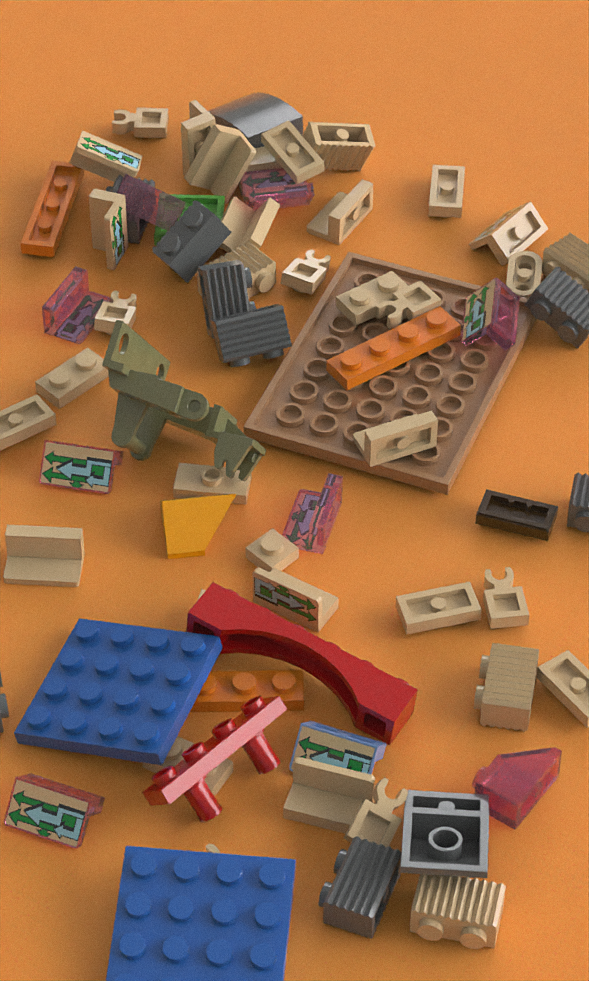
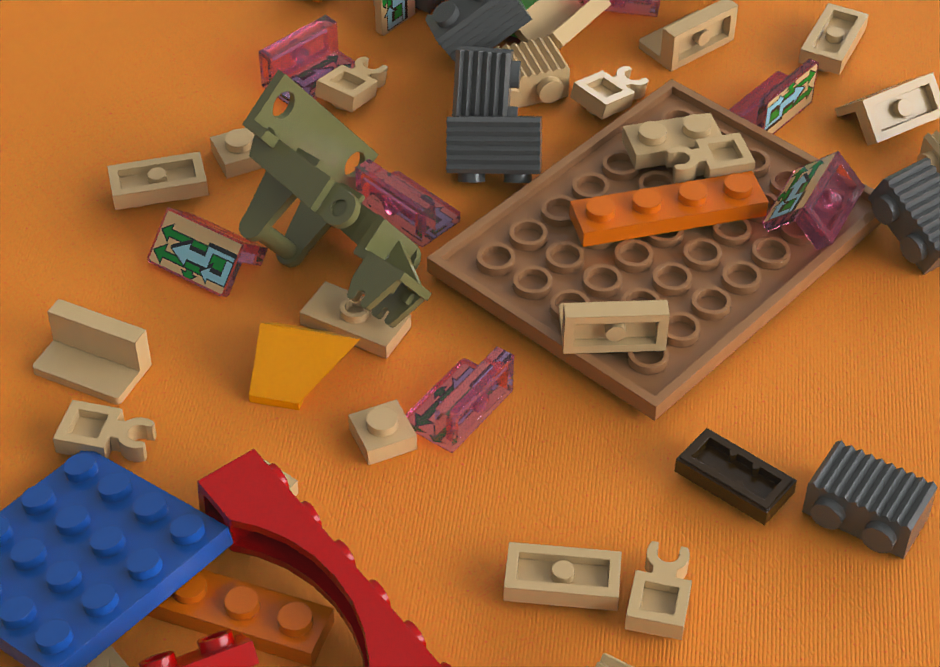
camera: 20 degrees right, 0 degrees up
(81, 604) = (102, 430): none -> tan plate
(214, 391) = (404, 203): none -> clear pink panel
(293, 598) = (376, 502): panel -> none
(427, 246) = (779, 98): none -> panel
(524, 273) = (887, 155): tan plate -> none

